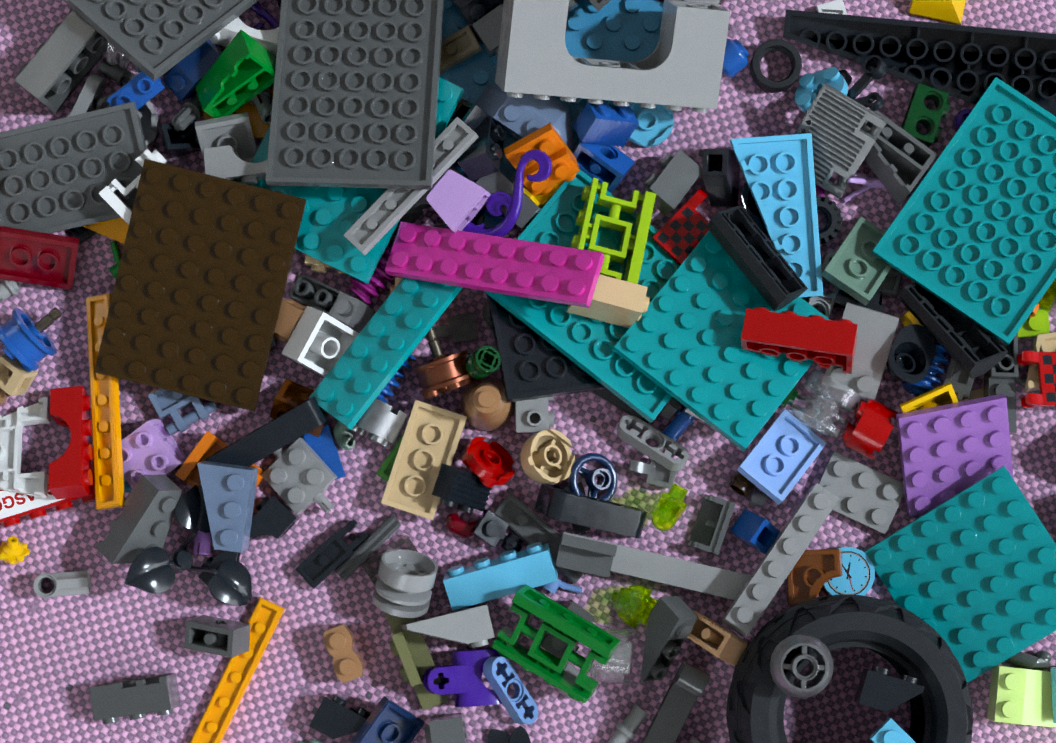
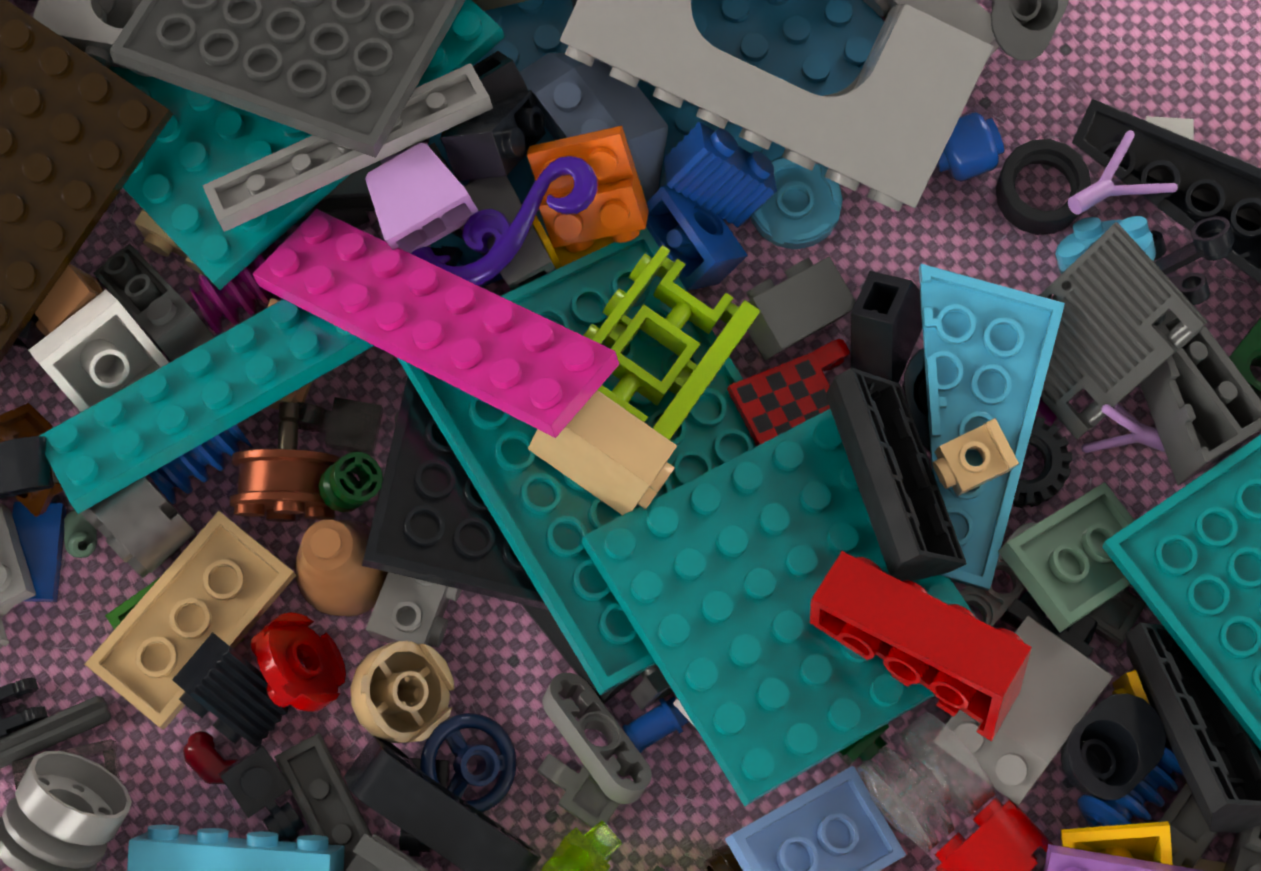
camera: 25 degrees right, 10 degrees down
(782, 235) = (994, 449): none -> tan brick
(809, 55) = (1106, 187): none -> lavender plant

